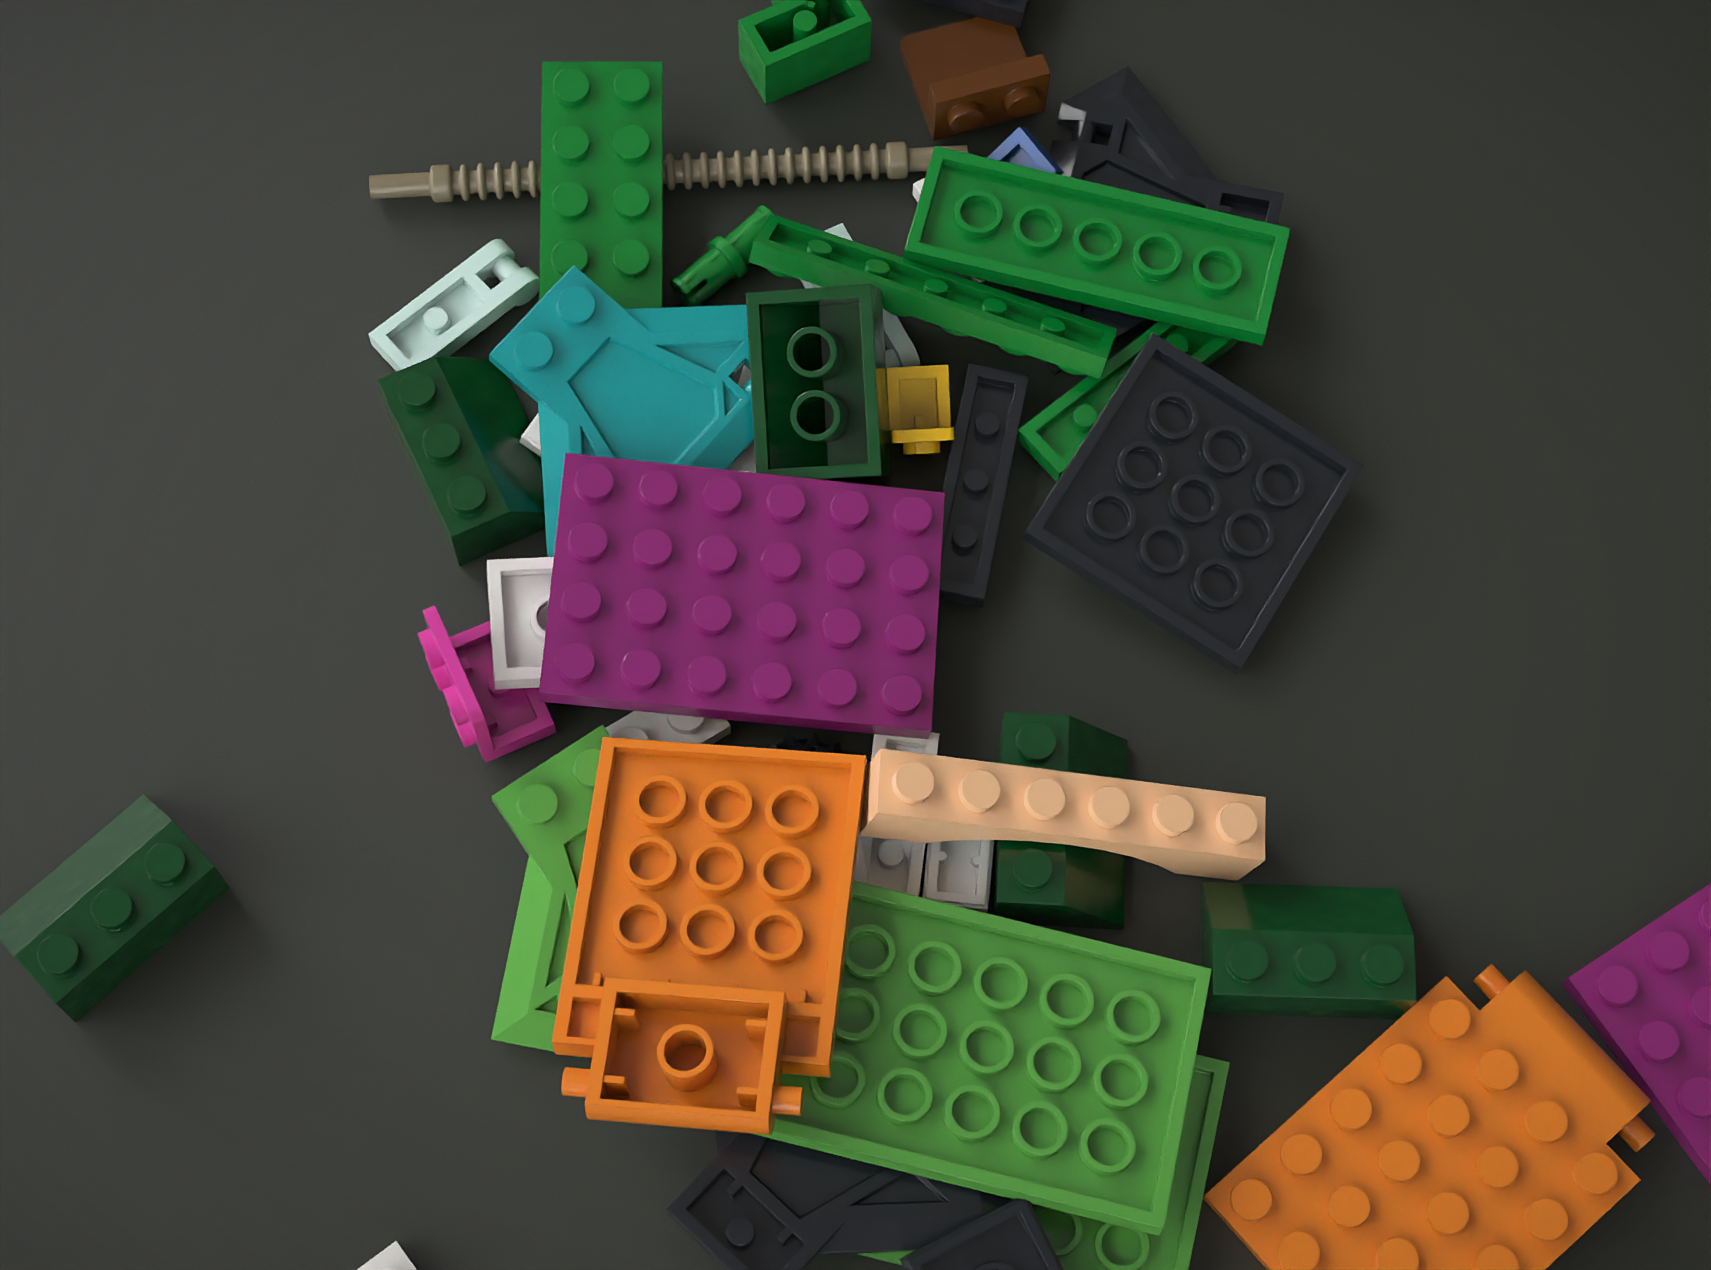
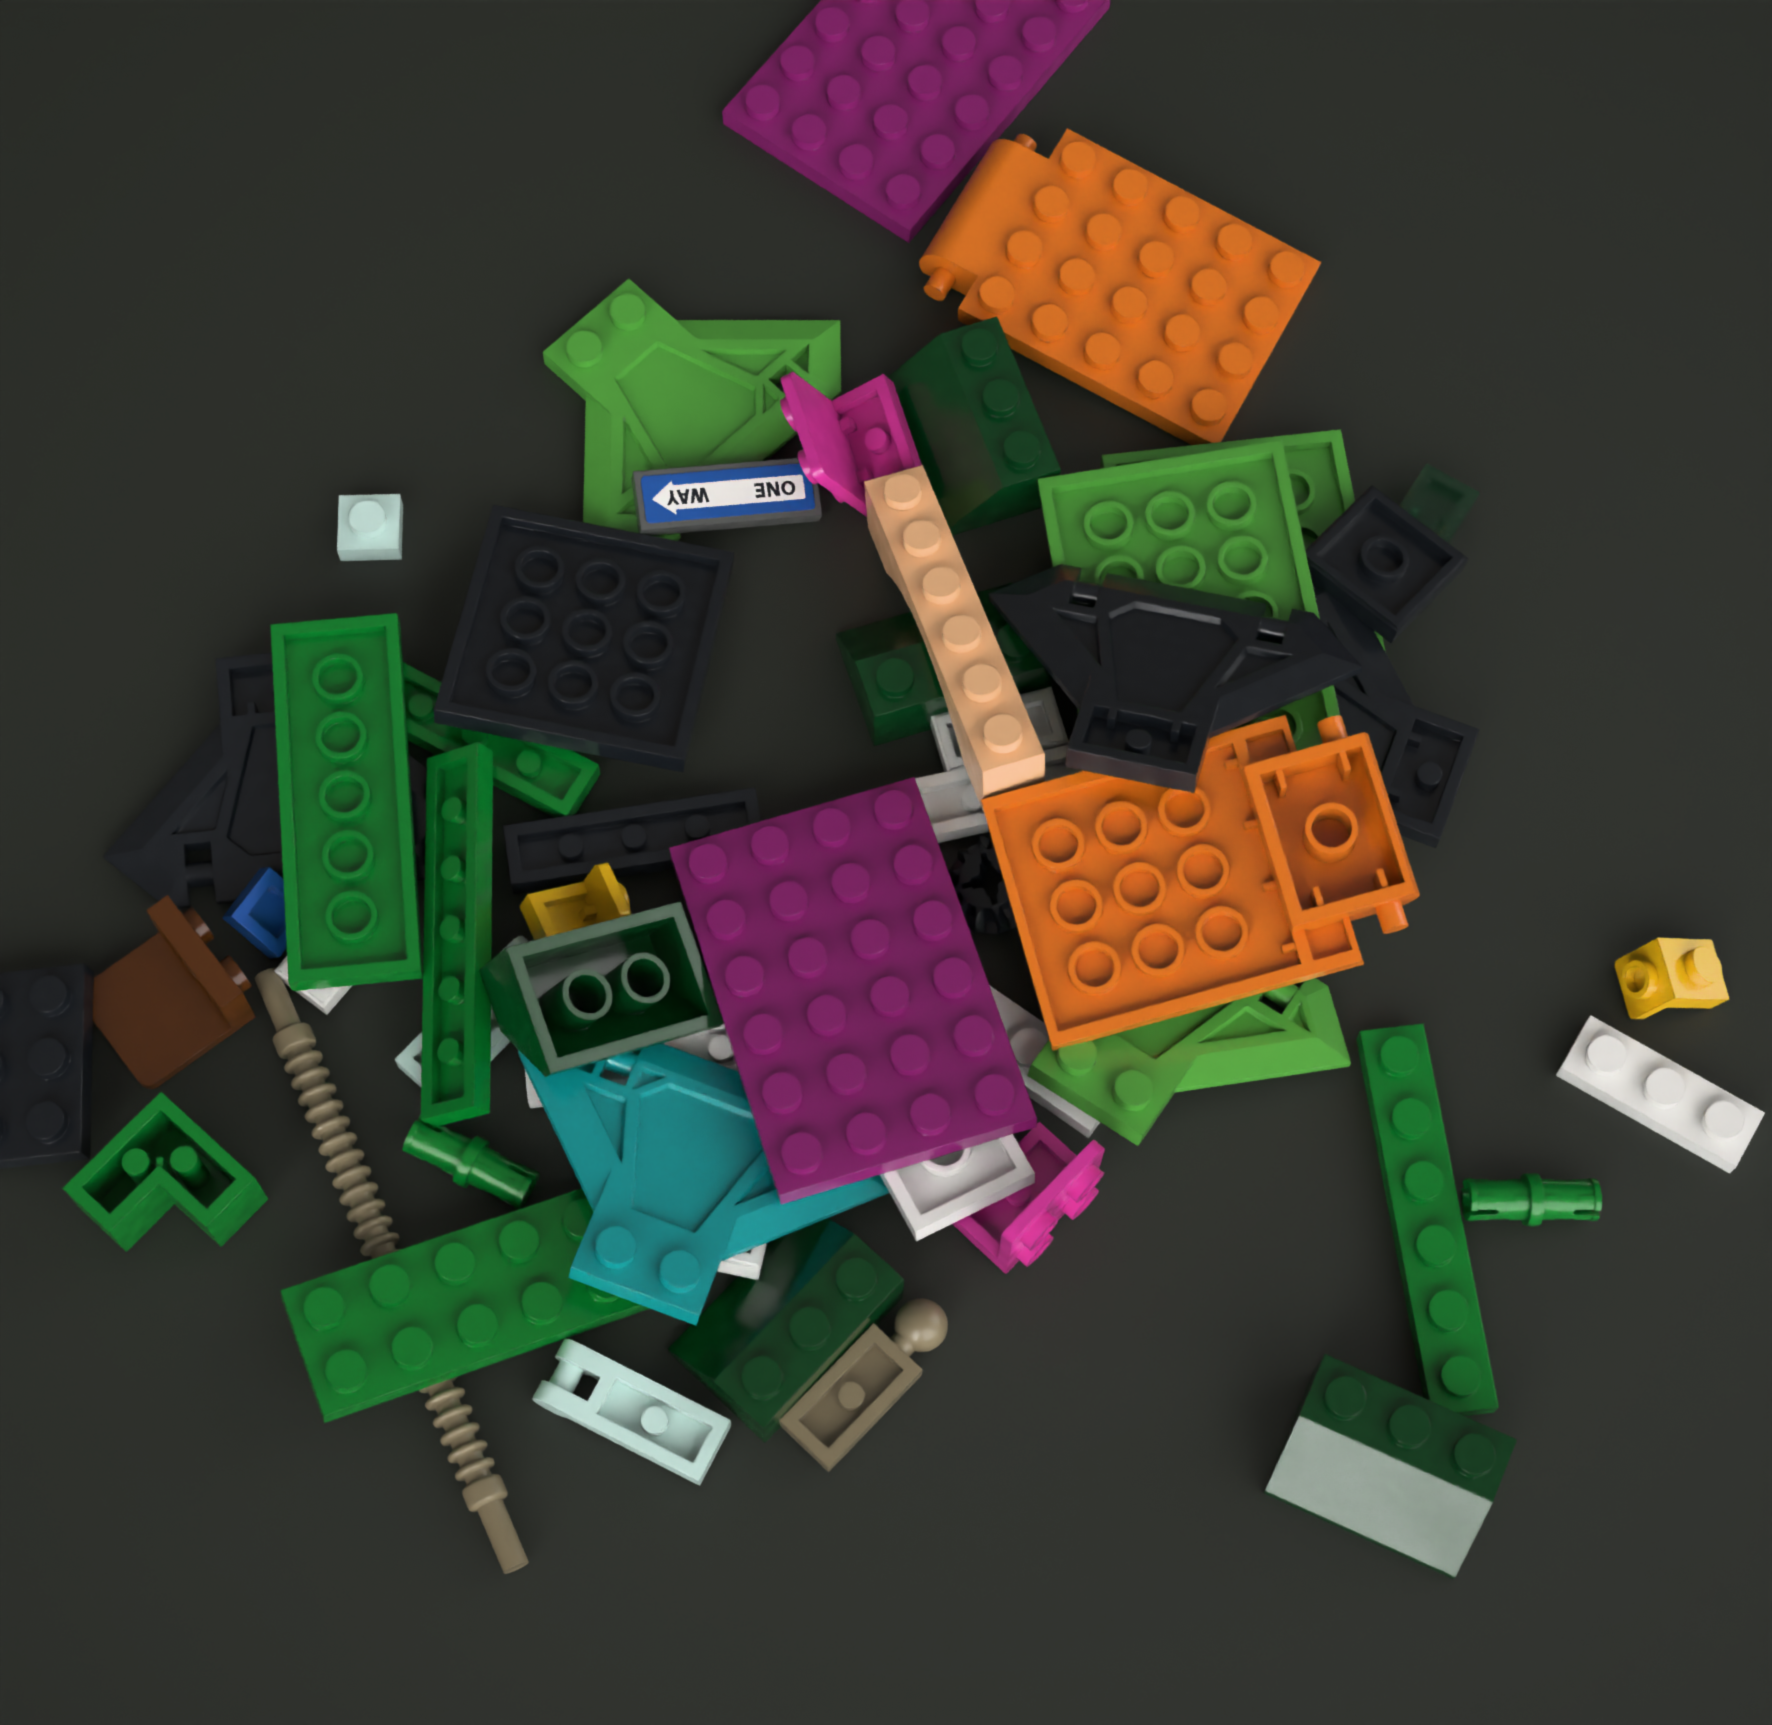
camera: 110 degrees left, 0 degrees up
(282, 1149) = (1531, 1199): none -> green pin
(315, 1046) = (1426, 1220): none -> green plate
(392, 497) = (864, 1383): none -> dark tan plate
(935, 982) = (1164, 666): none -> black plate
(1307, 684) = (724, 497): none -> tile
(1327, 808) = (849, 437): none -> dark pink bracket
(1386, 369) = (370, 527): none -> light aqua plate
(1429, 691) = (681, 391): none -> bright green plate

